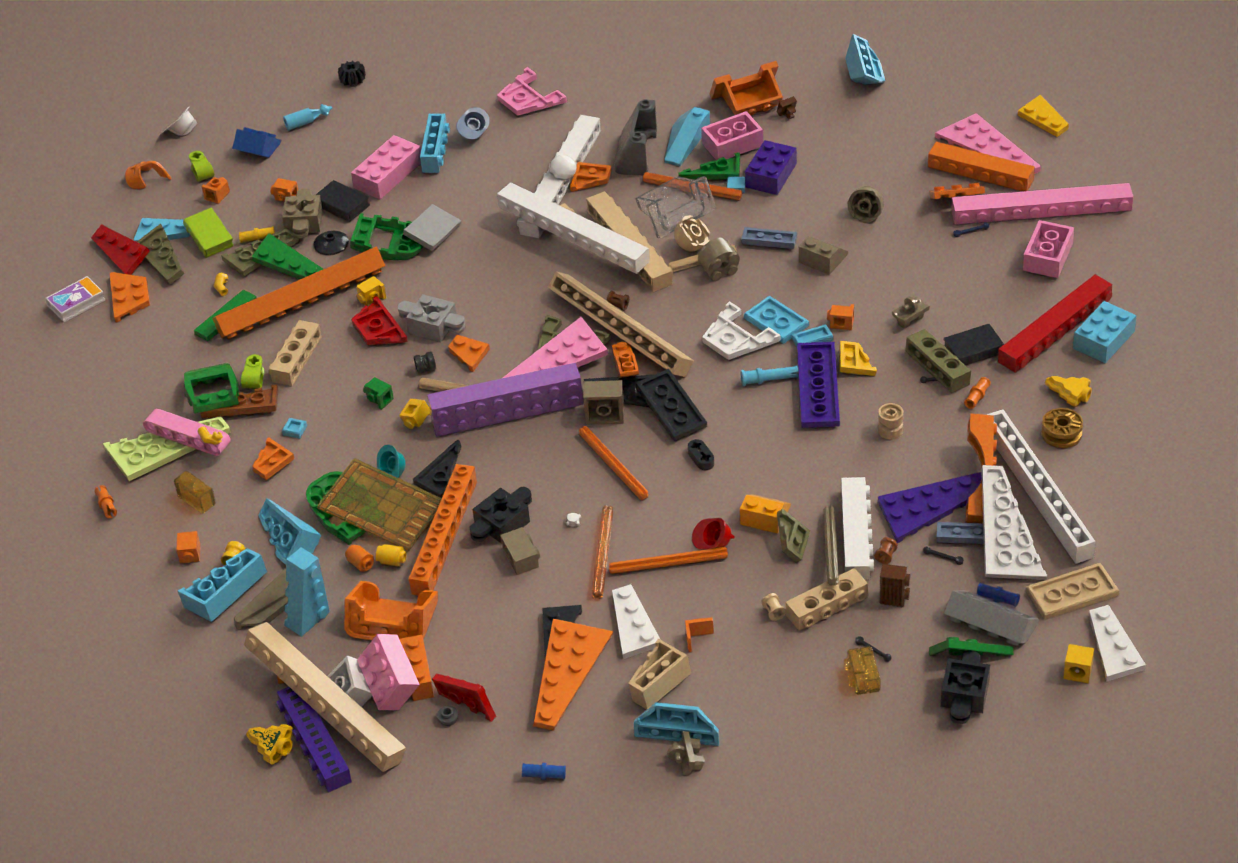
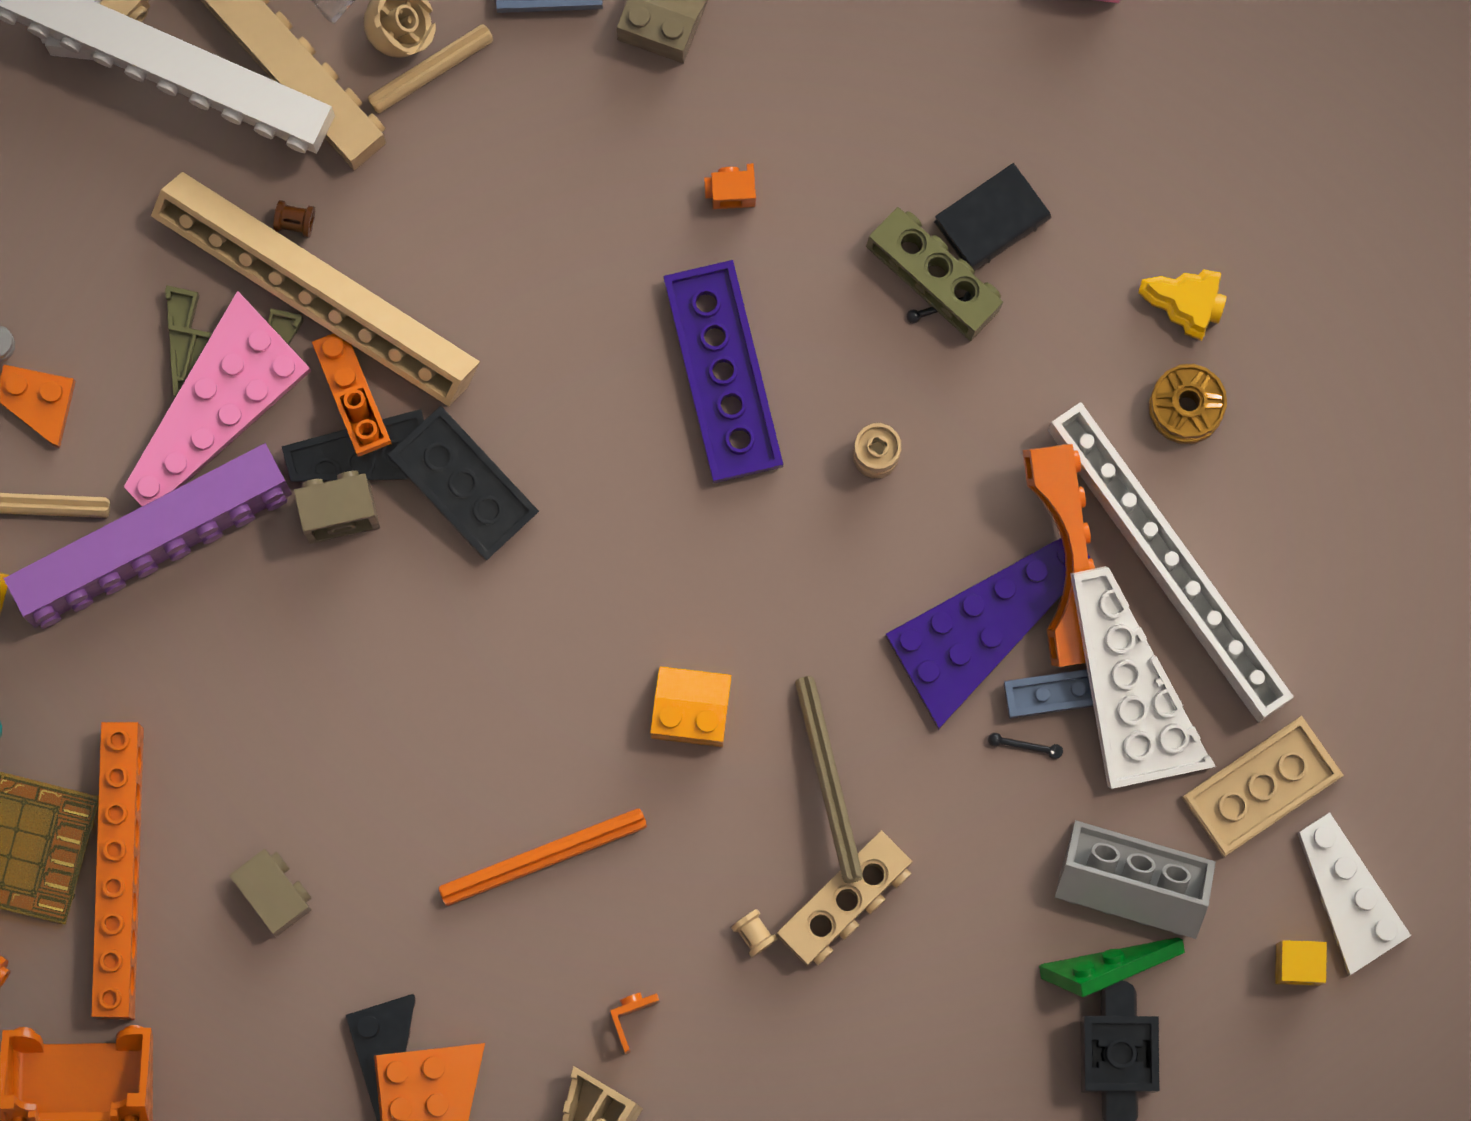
camera: 20 degrees left, 35 degrees up
(391, 555) = (37, 948): yellow brick -> none
(438, 473) = (66, 733): black wing -> none
(501, 514) = (214, 816): black brick -> none
(573, 519) = (347, 790): white piece -> none
(602, 552) = (419, 858): clear orange axle -> none
(608, 457) = (386, 637): orange axle -> none
(633, 623) = (518, 1020): white wing -> none
(696, 456) = (537, 593): black beam -> none
(711, 534) = (609, 790): red piece -> none
(719, 258) = (467, 82): dark tan brick -> none
(731, 339) = (532, 281): white wing -> none
(759, 375) = (610, 369): medium azure pin -> none
(777, 317) = (608, 208): medium azure tile -> none
(792, 535) = (756, 767): olive wing -> none
(816, 334) = (686, 244): medium azure tile -> none
(854, 360) = (777, 295): yellow wing -> none
(855, 526) = (862, 720): white brick -> none
(860, 641) = (917, 971): black hinge -> none
(863, 670) = (937, 1047): clear yellow brick -> none
(886, 550) = (925, 762): dark orange bush -> none
(894, 585) = (959, 855): reddish brown brick -> none
(912, 309) = (860, 153): dark tan hips -> none
(977, 392) = (1019, 340): orange pin -> none
(998, 594) = (1138, 825): clear blue pin -> none
(1054, 323) = (1135, 133): red brick -> none
(1104, 332) = (1229, 144): medium azure brick -> none

